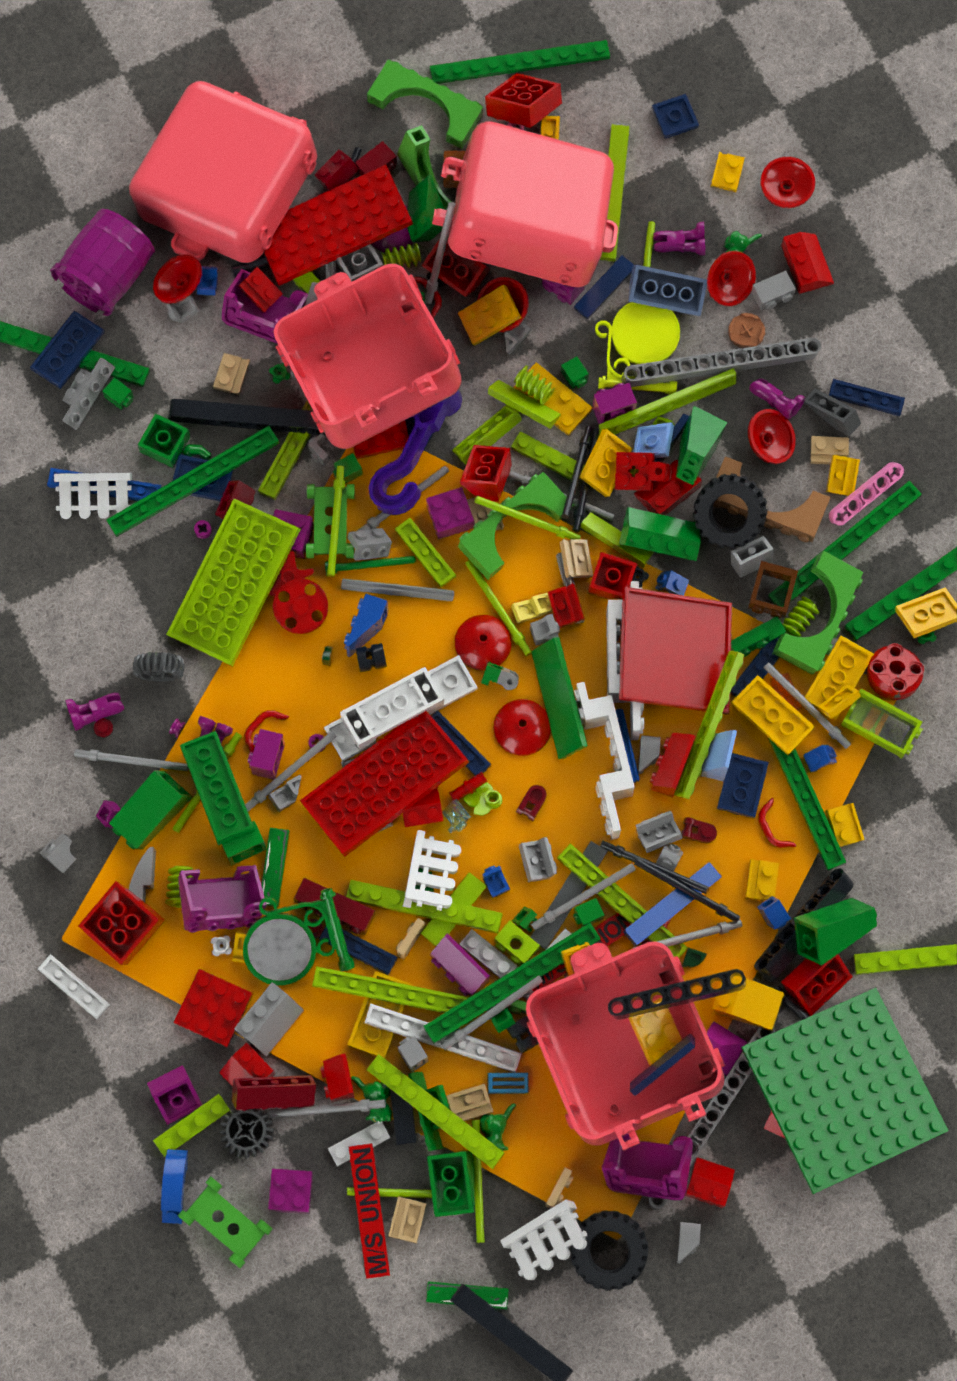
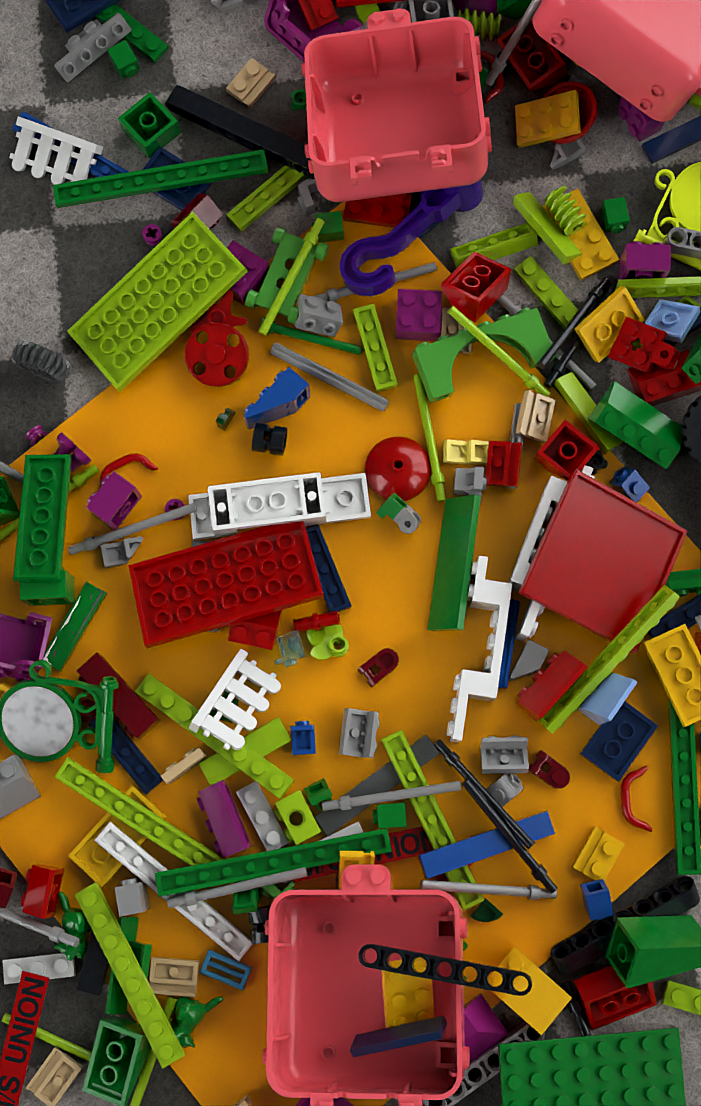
camera: 25 degrees right, 5 degrees up
(191, 449) = (182, 148): green arm -> none
(518, 739) = (398, 593): red dish -> none

